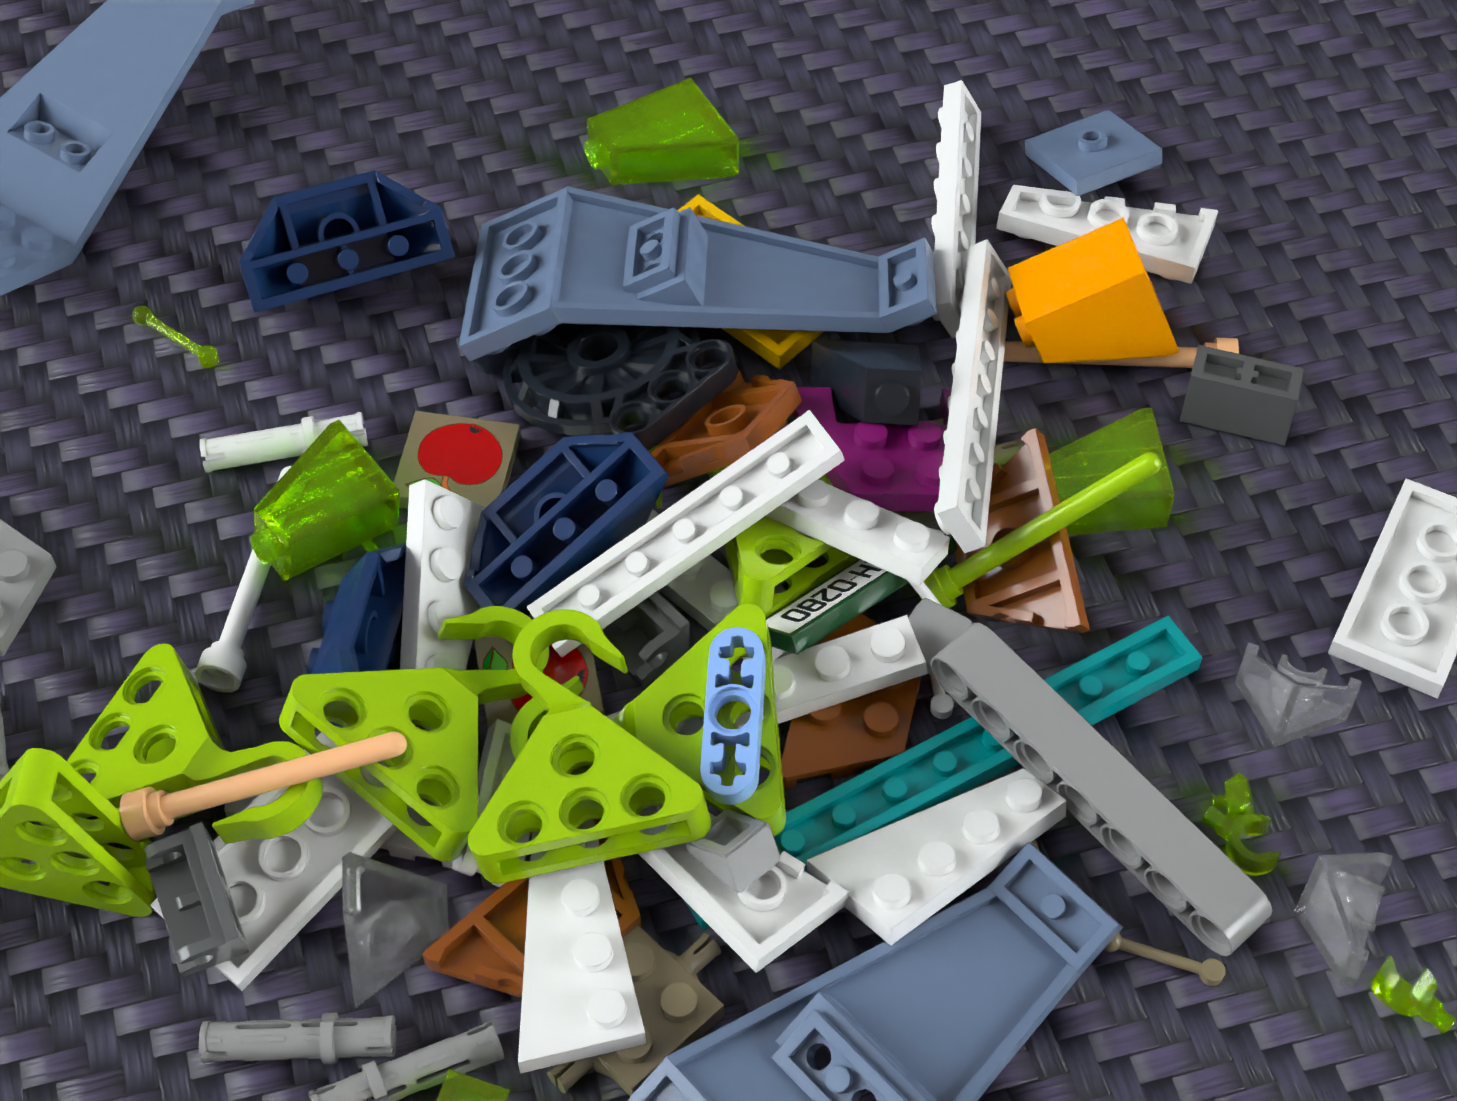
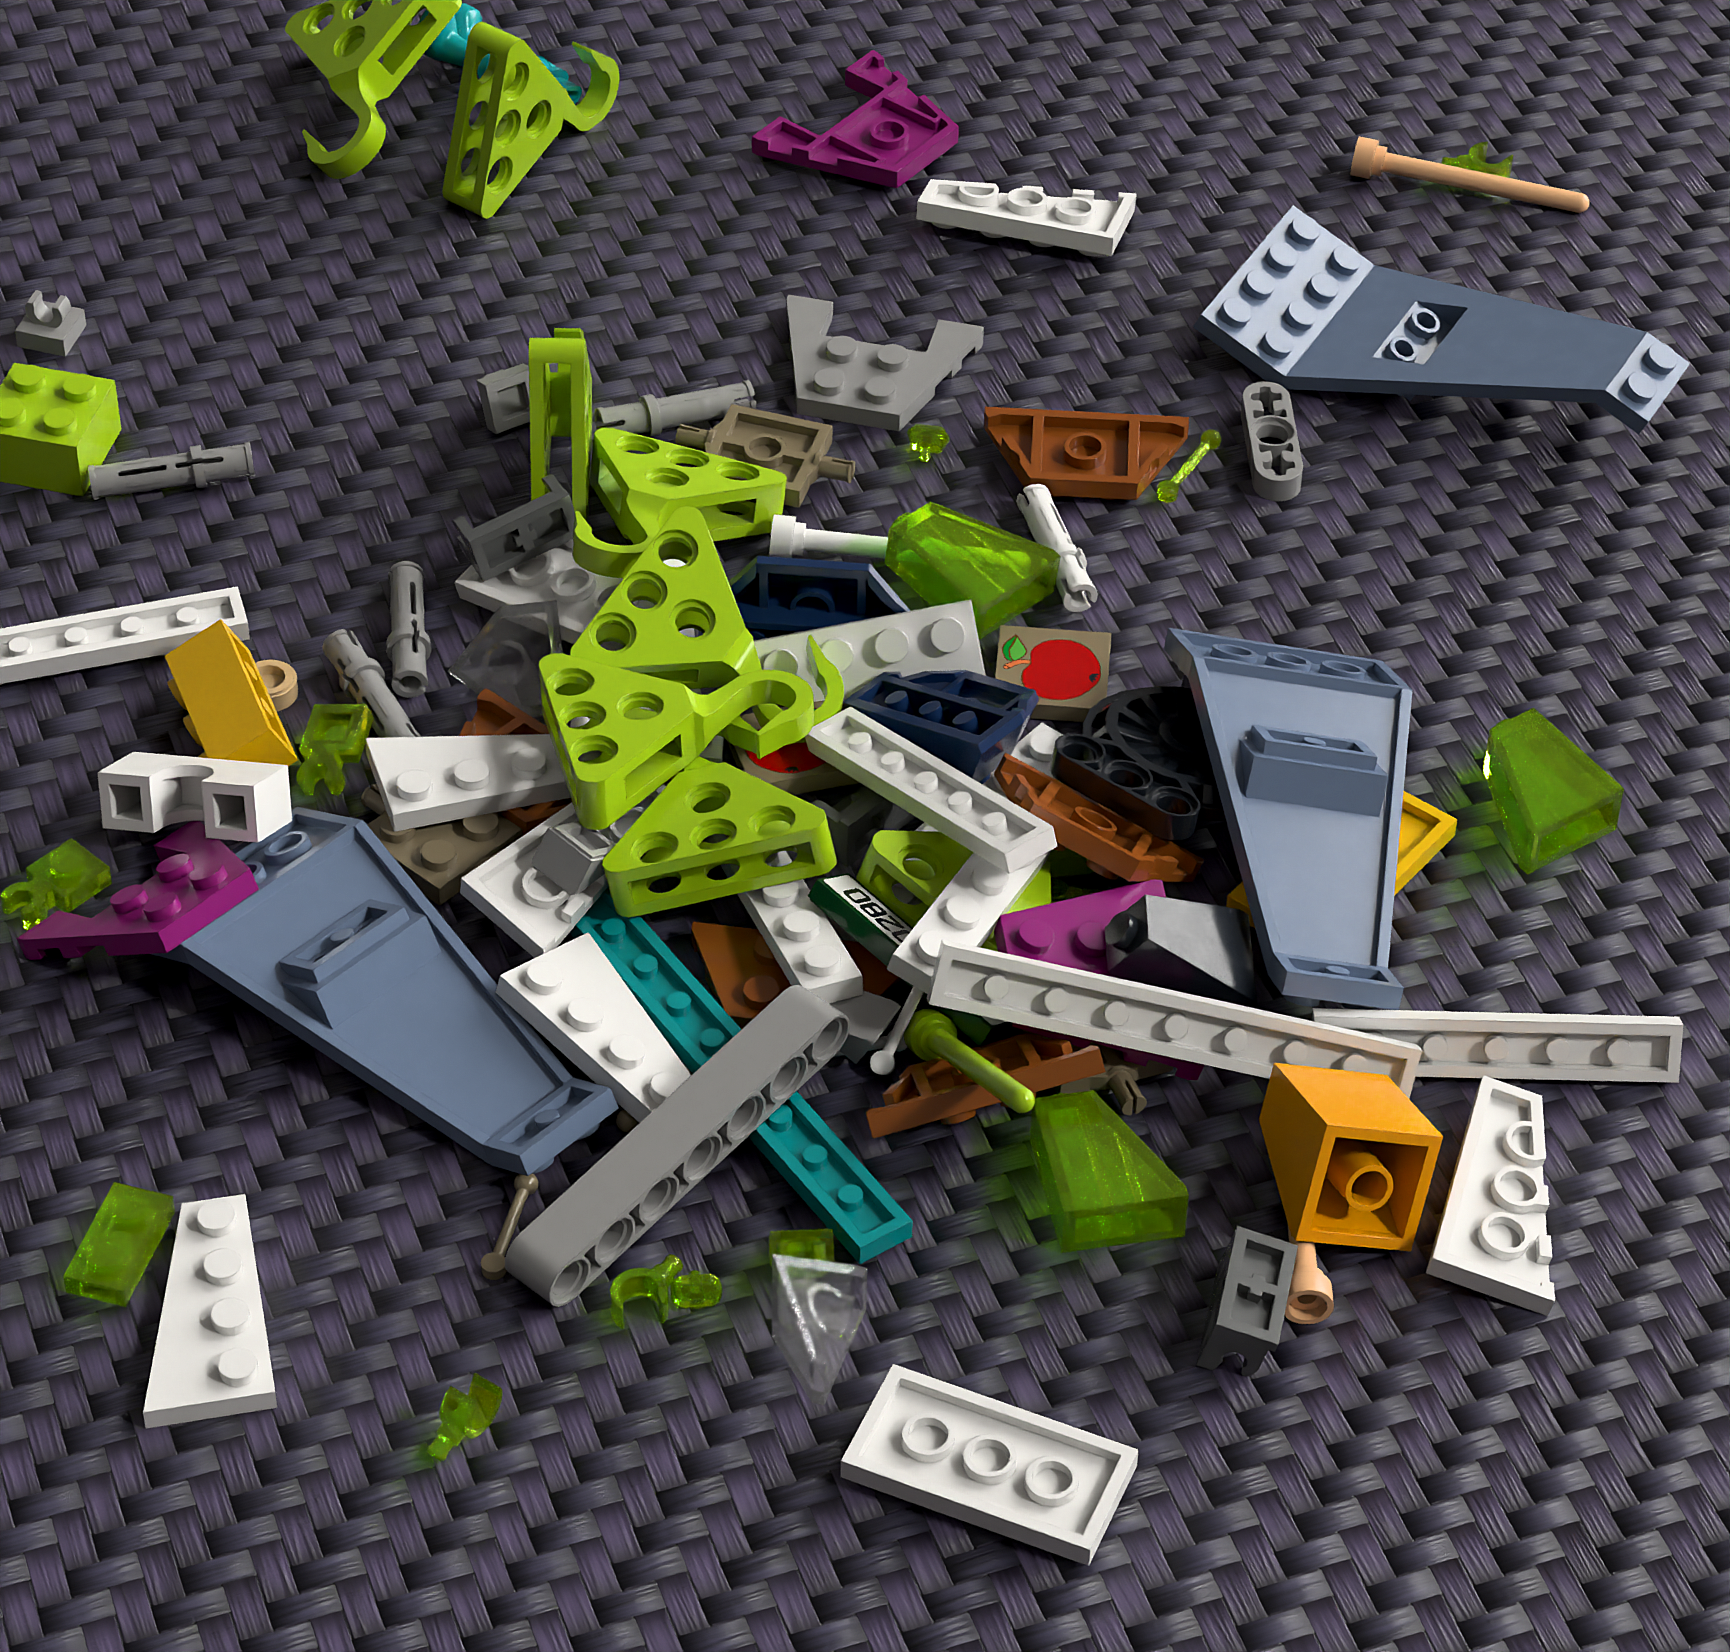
camera: 85 degrees right, 10 degrees down
(78, 673) = (773, 442): none -> dark tan plate
(90, 537) = (927, 440): none -> clear neon green rock
(124, 279) = (1264, 455): none -> light grey beam
(144, 411) = (1085, 451): none -> dark orange wing
(149, 811) = (595, 481): light nougat piece -> none
(340, 238) = (1295, 527): dark blue wedge -> none
(719, 673) = (753, 808): light blue beam -> none
(1093, 152) = (1620, 1175): sand blue plate -> none
(1205, 698) = (808, 1244): none -> clear neon green plate
(1342, 908) = (548, 1348): clear slope -> none

